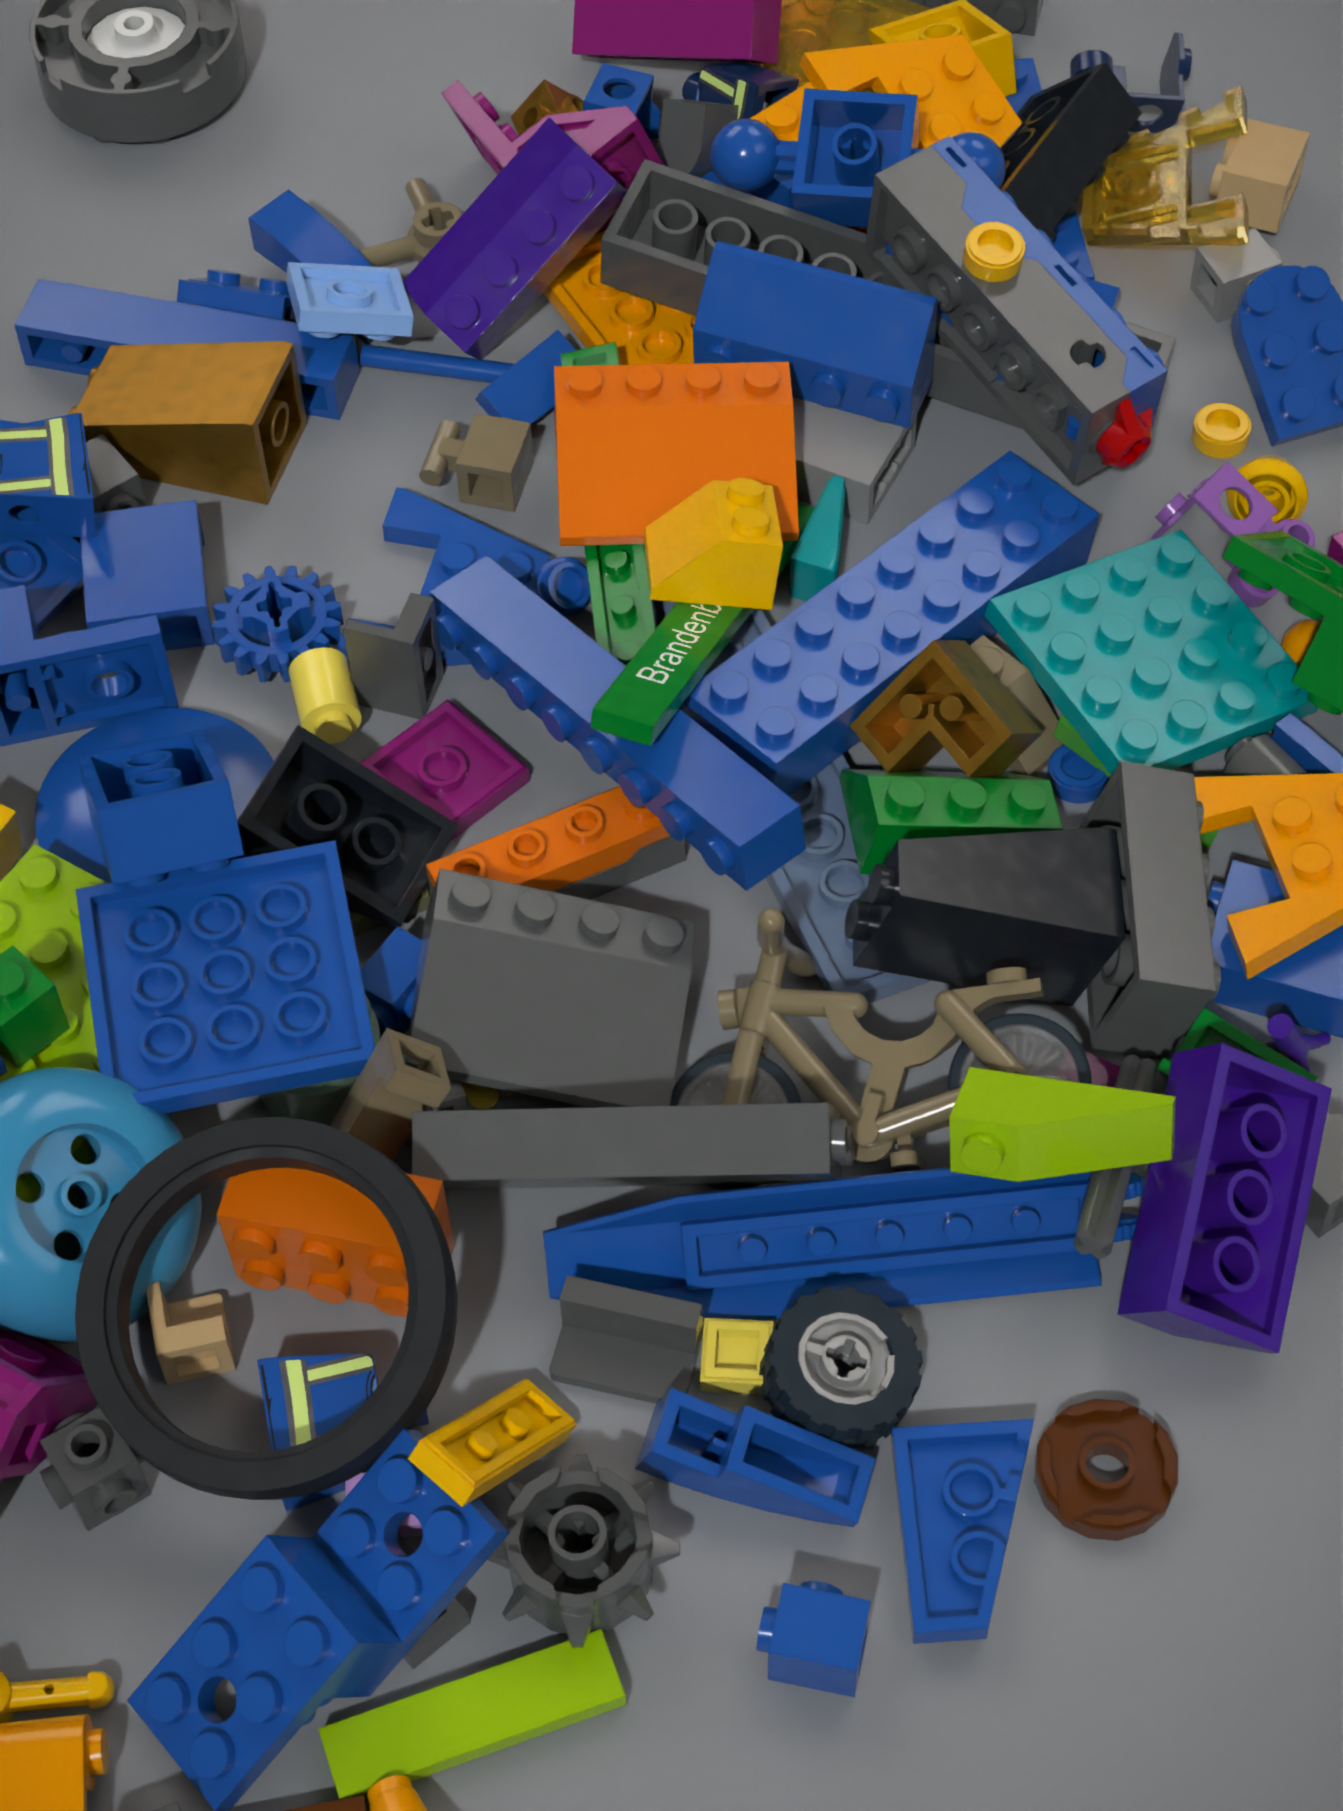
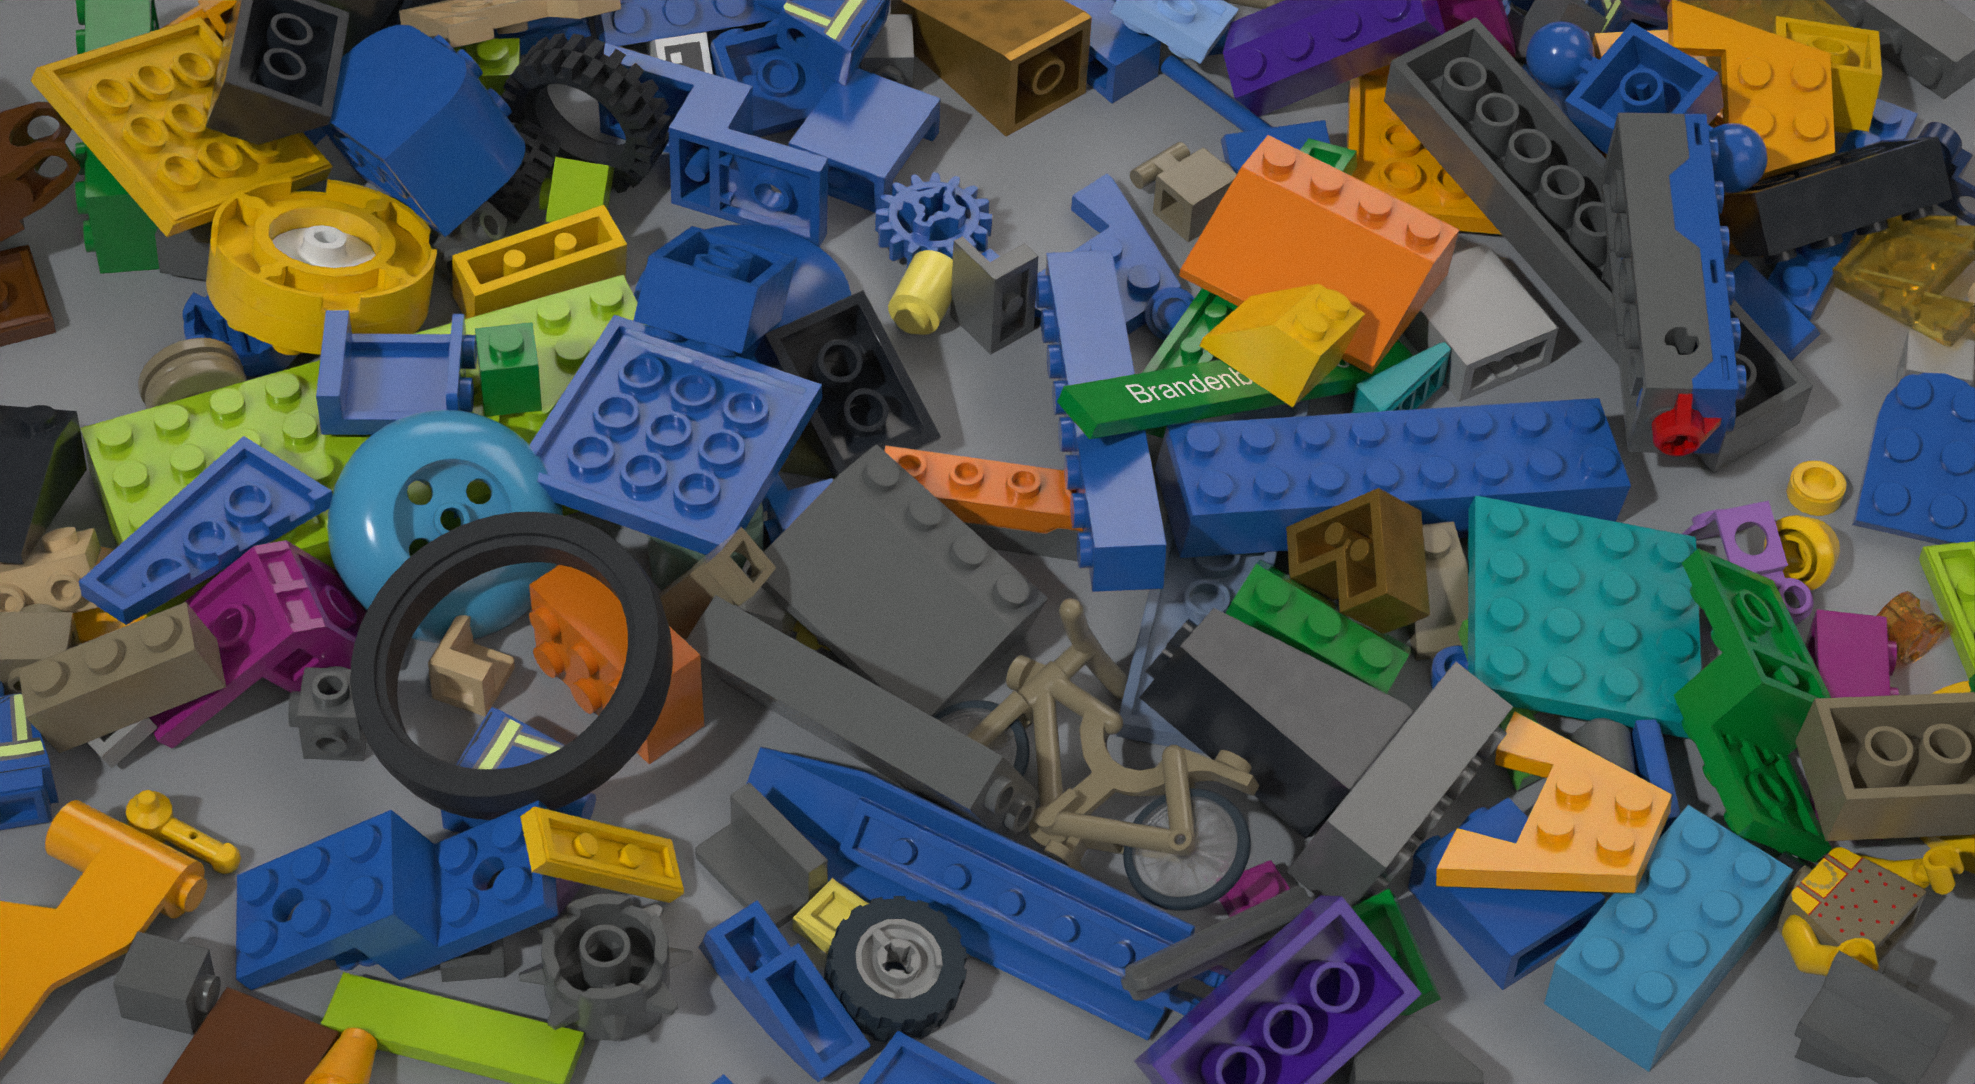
camera: 30 degrees right, 5 degrees down
(450, 766) = (973, 397): magenta tile -> none
(843, 335) = (1511, 223): blue slope -> none
(994, 252) = (1664, 221): yellow tile -> none
(1054, 1127) = (1171, 884): lime slope -> none
(1291, 1041) = (1444, 961): dark purple bar -> none

